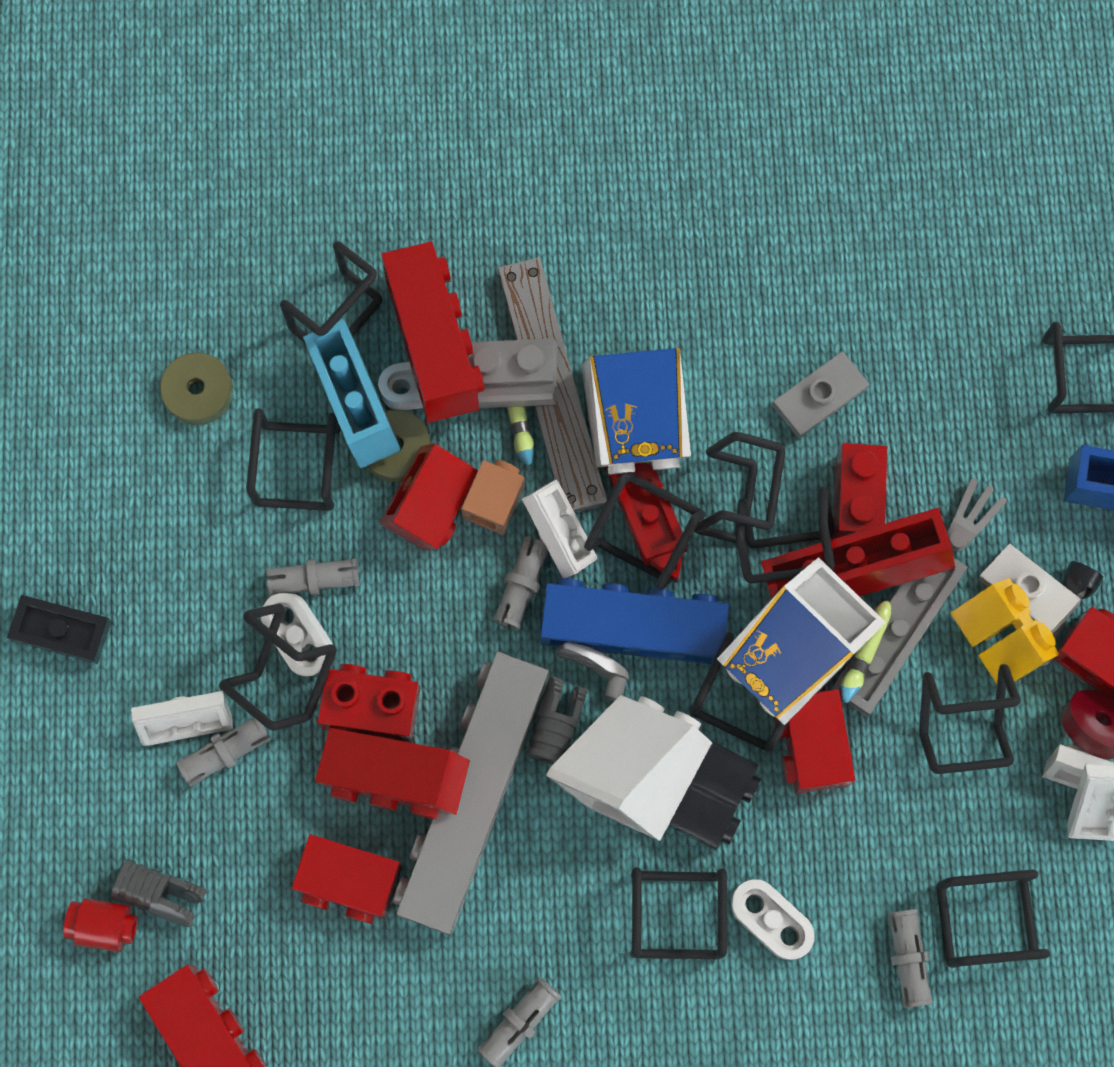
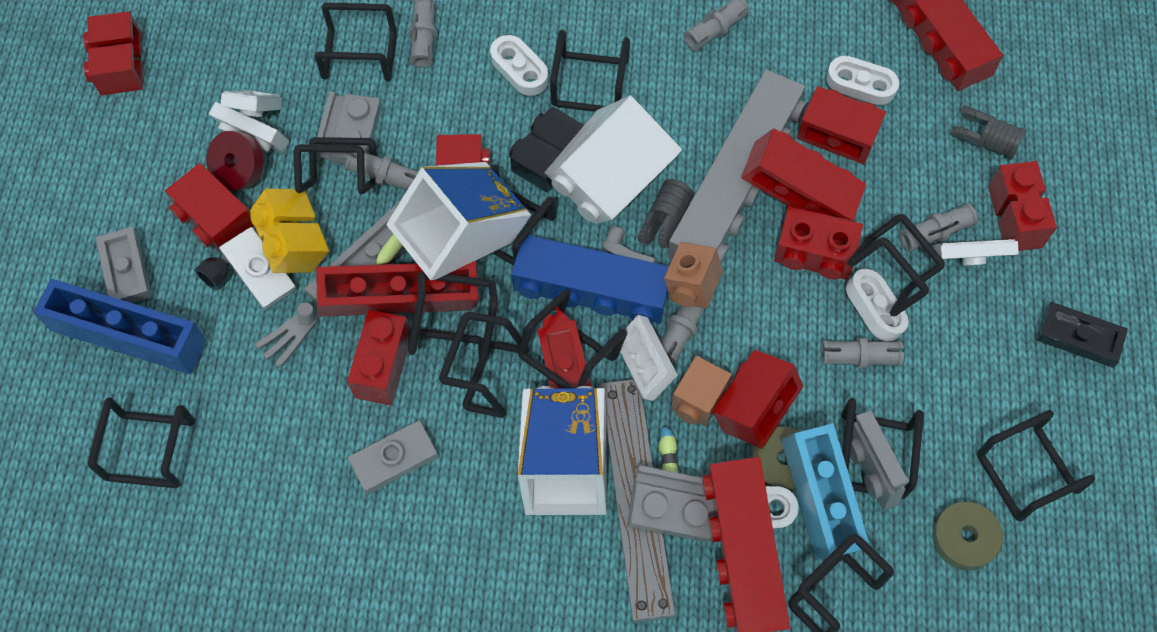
camera: 170 degrees left, 10 degrees down
(100, 924) = (1034, 114): red brick -> none
(110, 504) = (1038, 422): none -> black piece
(123, 803) = (1029, 216): none -> red piece
(291, 422) = (881, 468): none -> light grey plate
(321, 953) = (862, 80): none -> white plate
(516, 624) = (693, 275): none -> nougat brick
(913, 733) = (383, 170): none -> light grey pin
(973, 804) = (348, 118): none -> light grey plate

